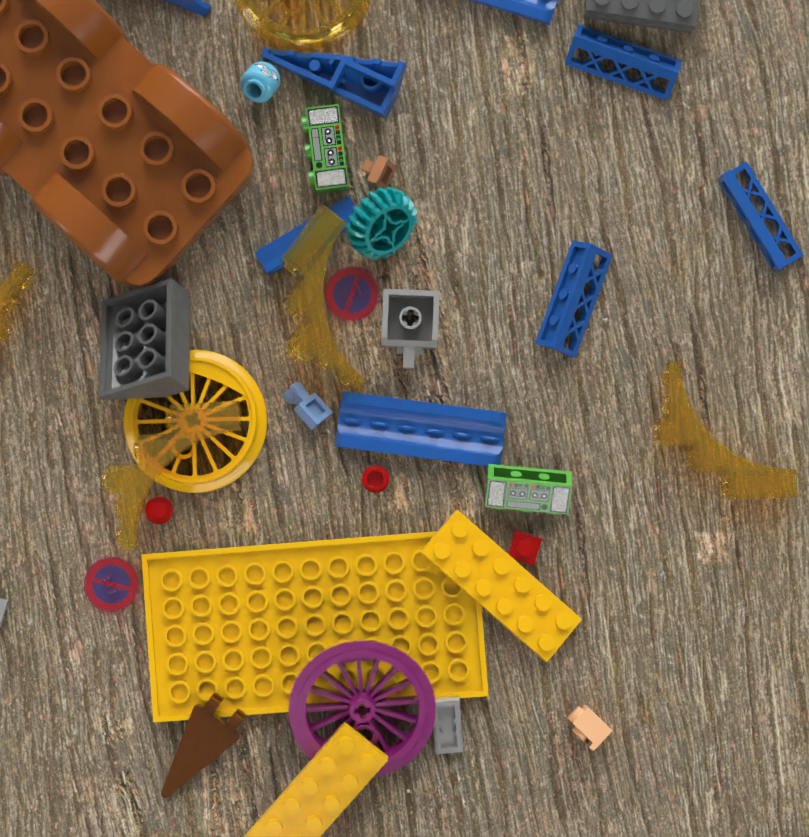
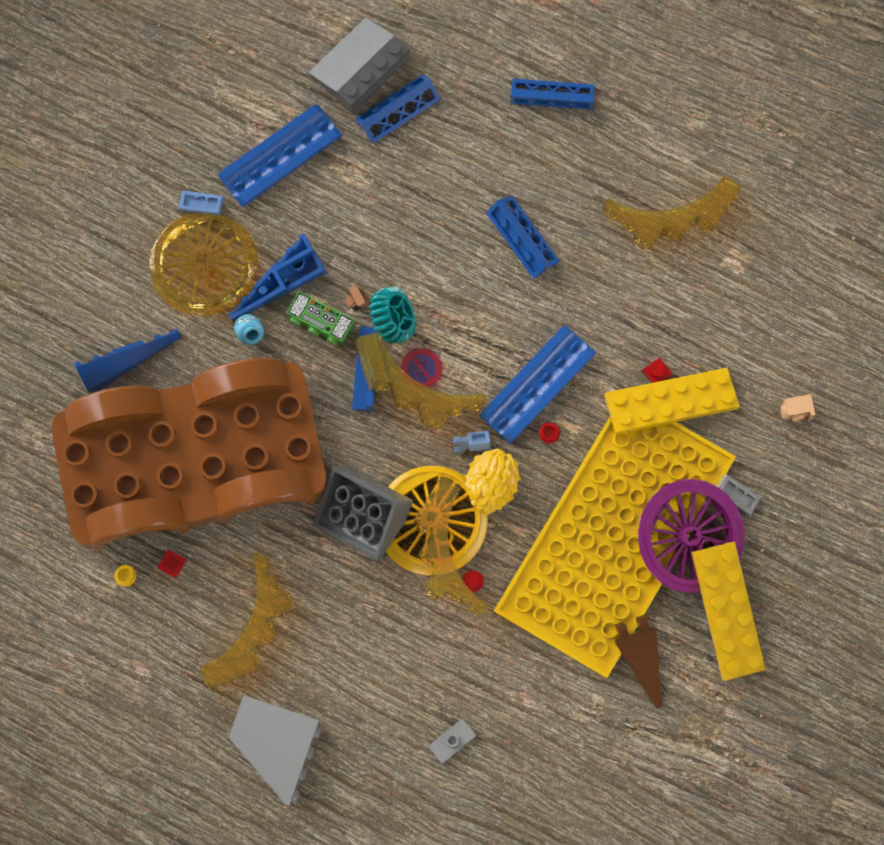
camera: 50 degrees left, 10 degrees down
(111, 584) = (498, 646): clear pink piece -> none
(276, 456) = (492, 480): none -> yellow hair
(410, 339) = (467, 354): light grey hinge -> none
(528, 489) = (622, 343): brick -> none

